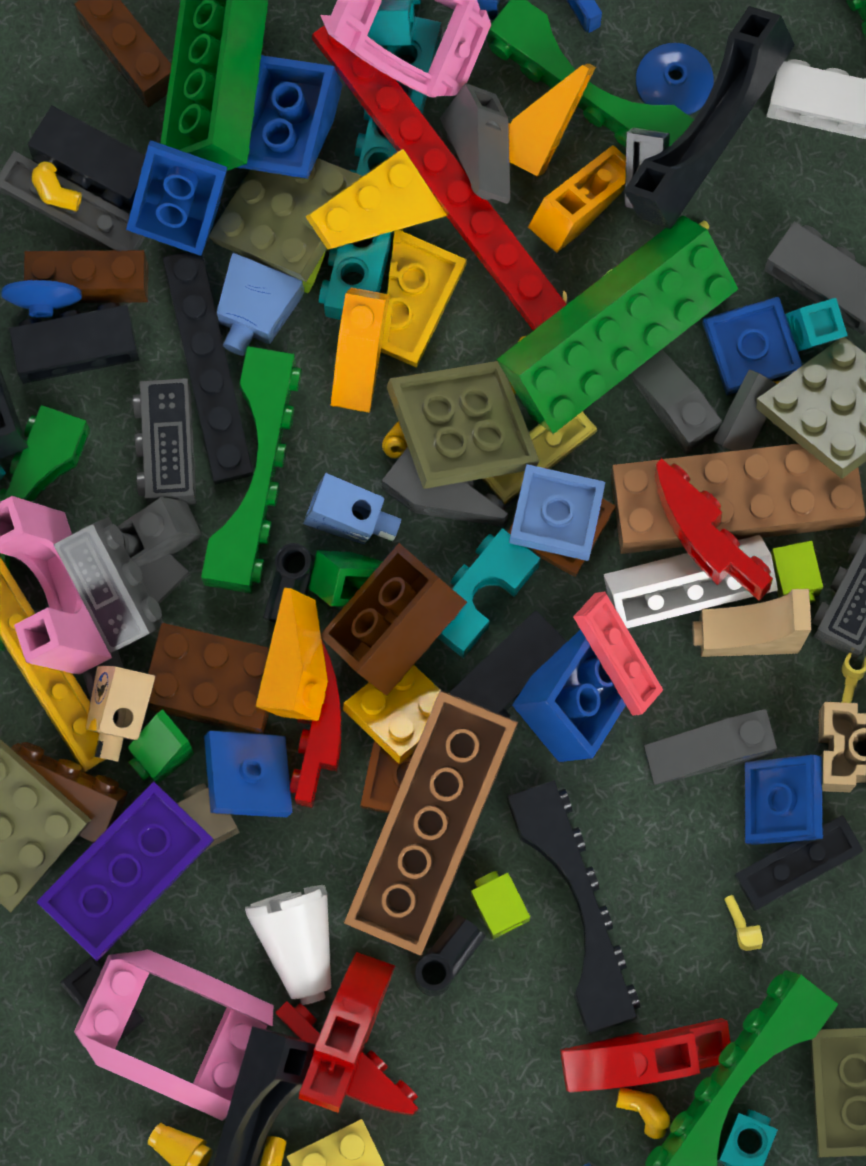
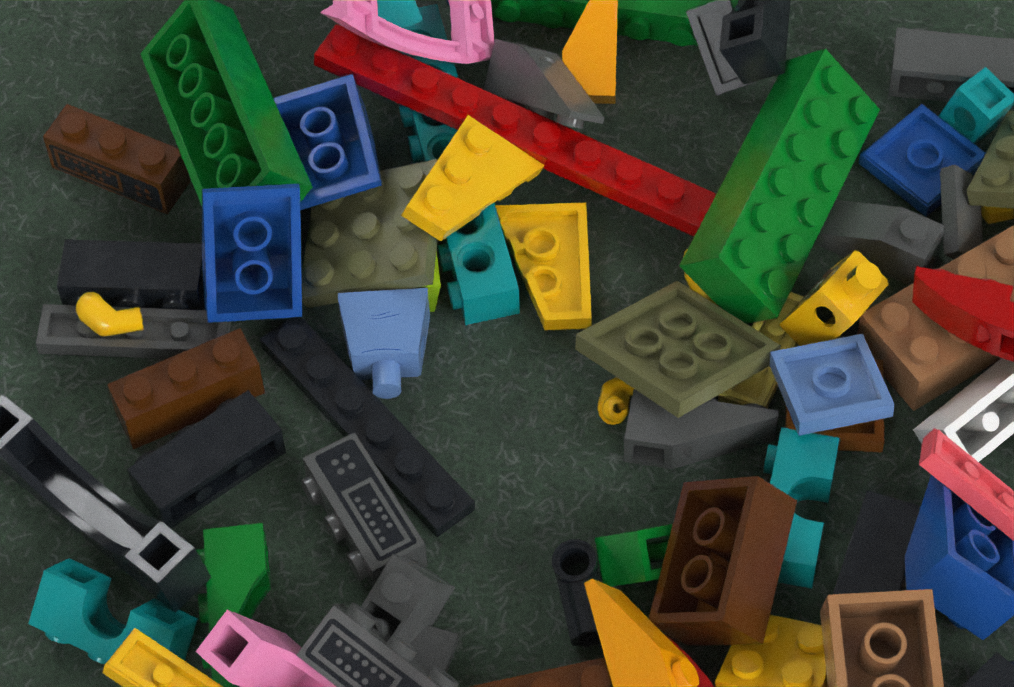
camera: 25 degrees left, 20 degrees down
(41, 296) = (146, 420): blue dish -> none
(235, 548) = (499, 583): green arch -> none
(333, 508) = (603, 487): medium blue torso -> none
(359, 349) = (526, 324): light orange slope -> none
(580, 199) = (669, 105): light orange slope -> none
(605, 442) = (844, 290): none -> yellow torso

